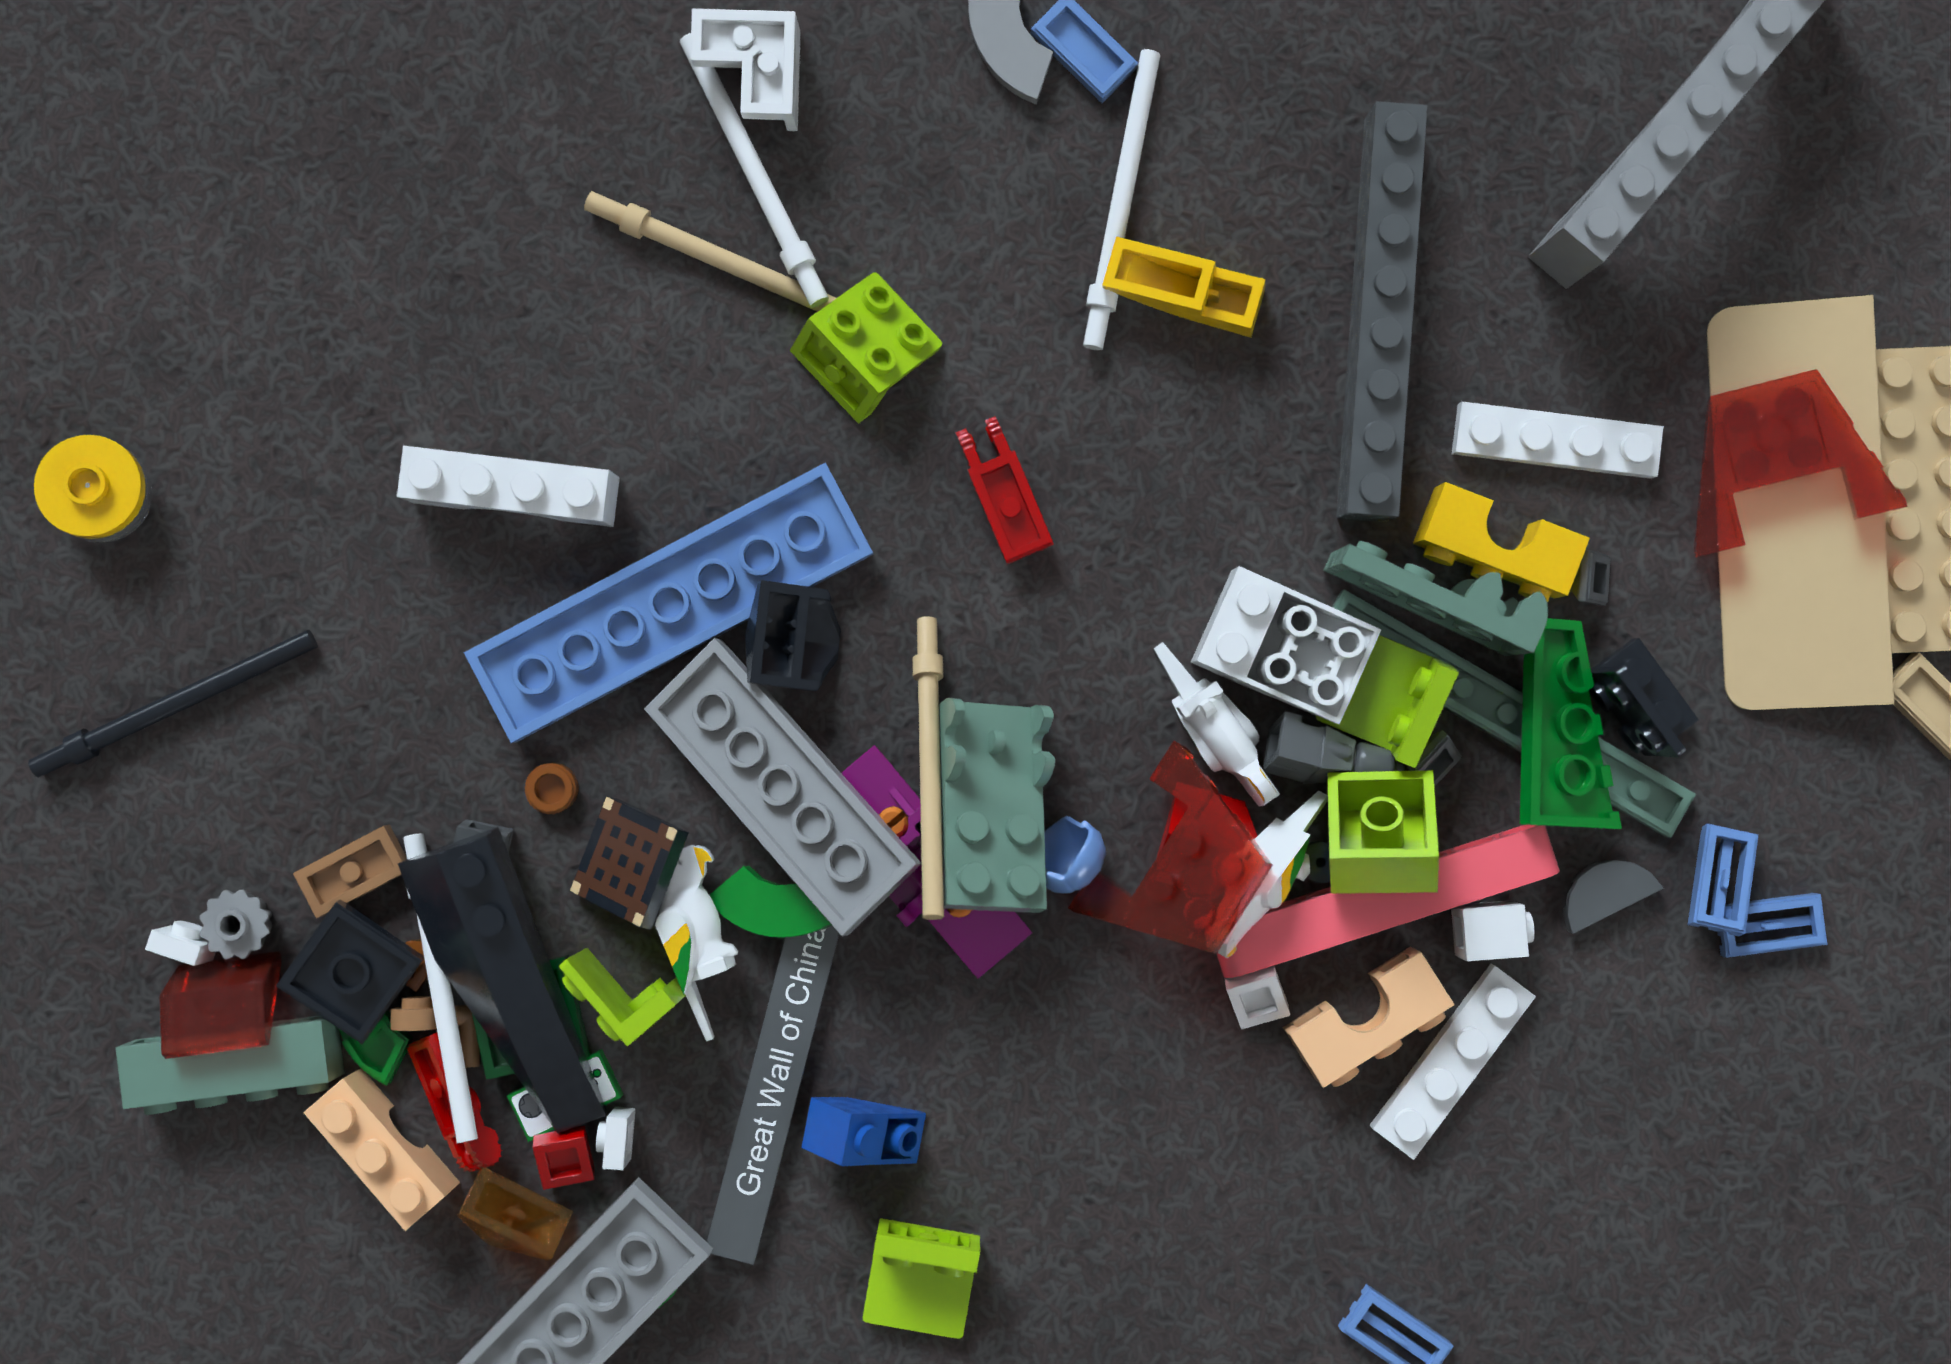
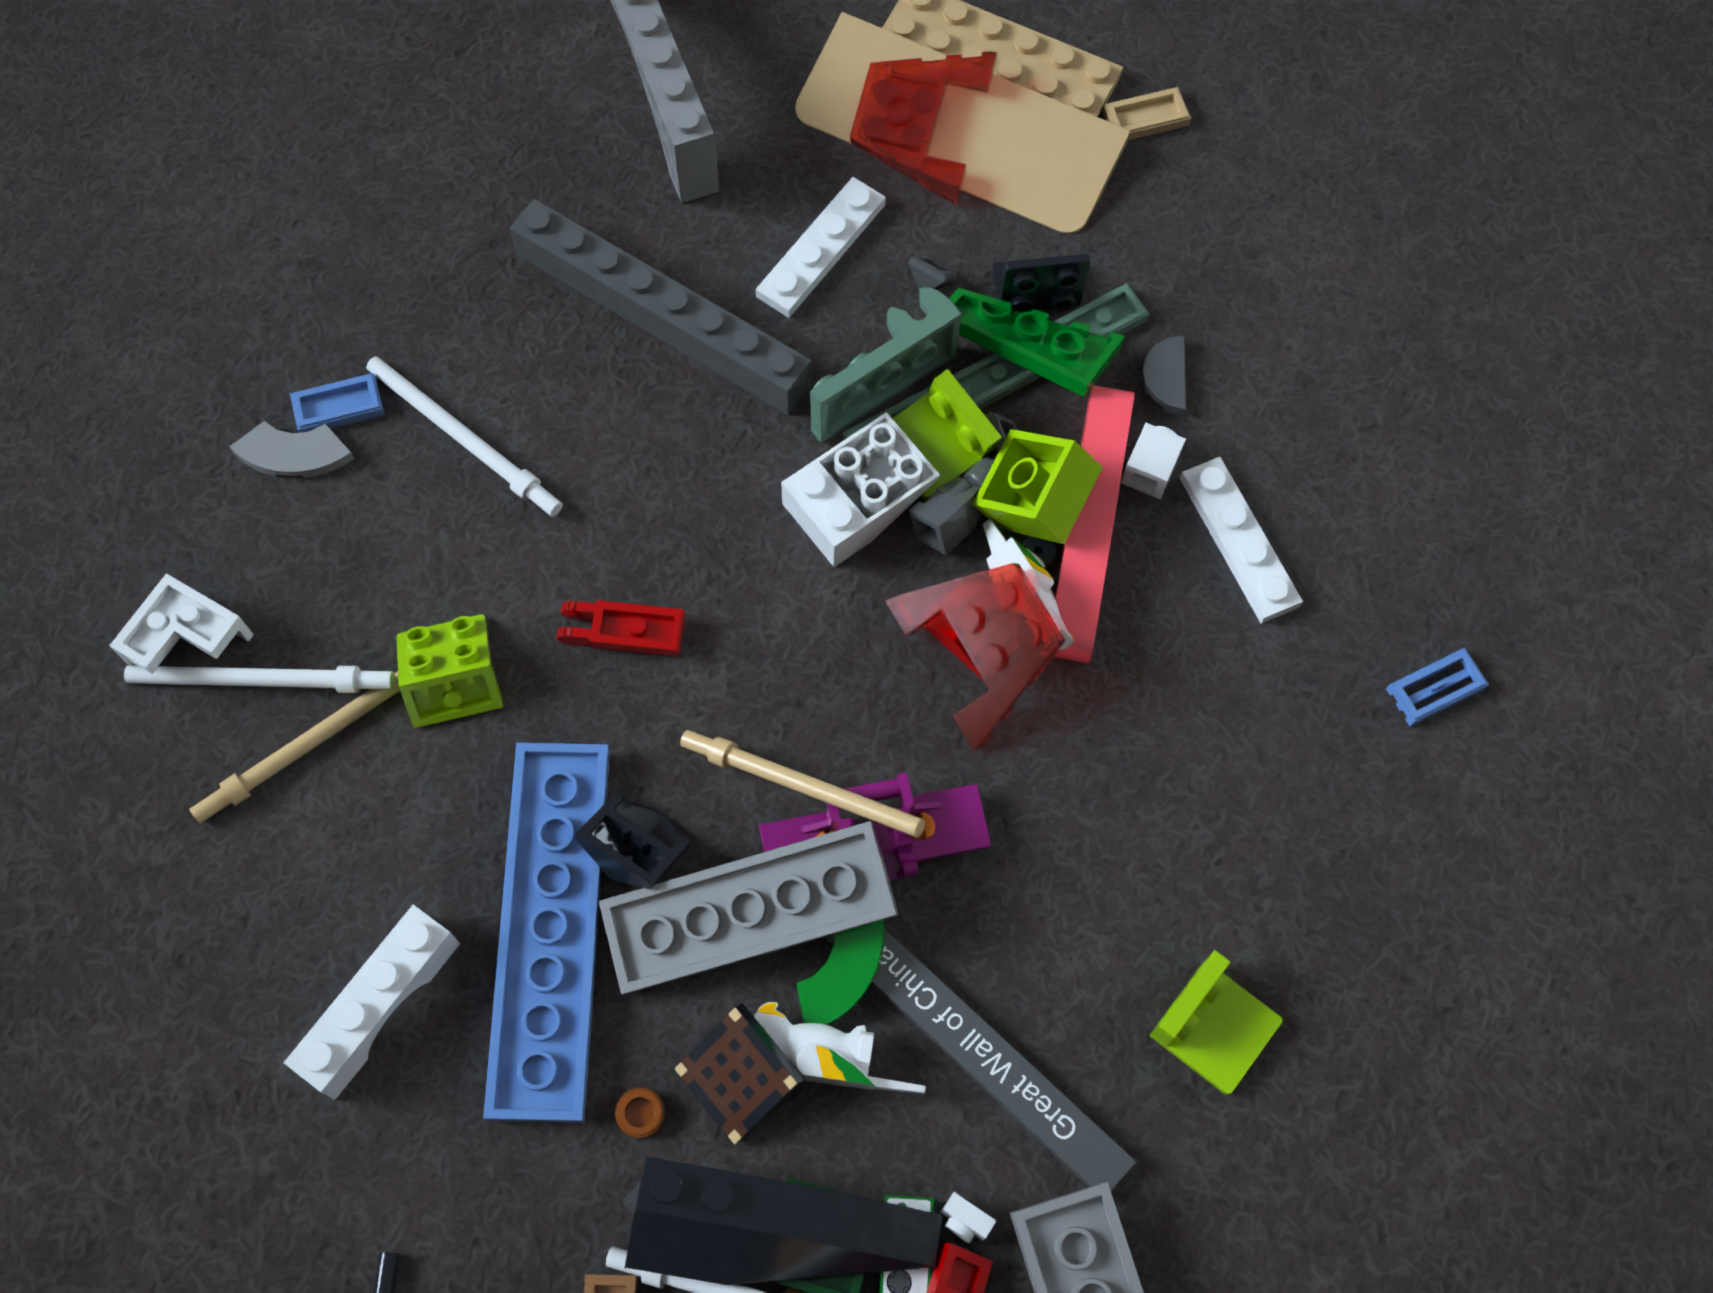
camera: 65 degrees left, 20 degrees down
(619, 1014) = (867, 1117): lime bracket -> none
(862, 1132) = (1067, 1005): blue slope -> none
(993, 805) = (858, 749): sand green hinge -> none
(1072, 855) = (930, 725): medium blue hair -> none
(1184, 286) = (554, 421): yellow slope -> none
(1218, 728) = (897, 568): white animal -> none
(1257, 997) = (1117, 646): white plate -> none
(1408, 1001) = (1176, 541): light nougat arch -> none
(1457, 530) = (843, 334): yellow arch -> none
(1702, 879) = (1194, 300): medium blue tile -> none
(1815, 919) = (1238, 311): medium blue tile -> none

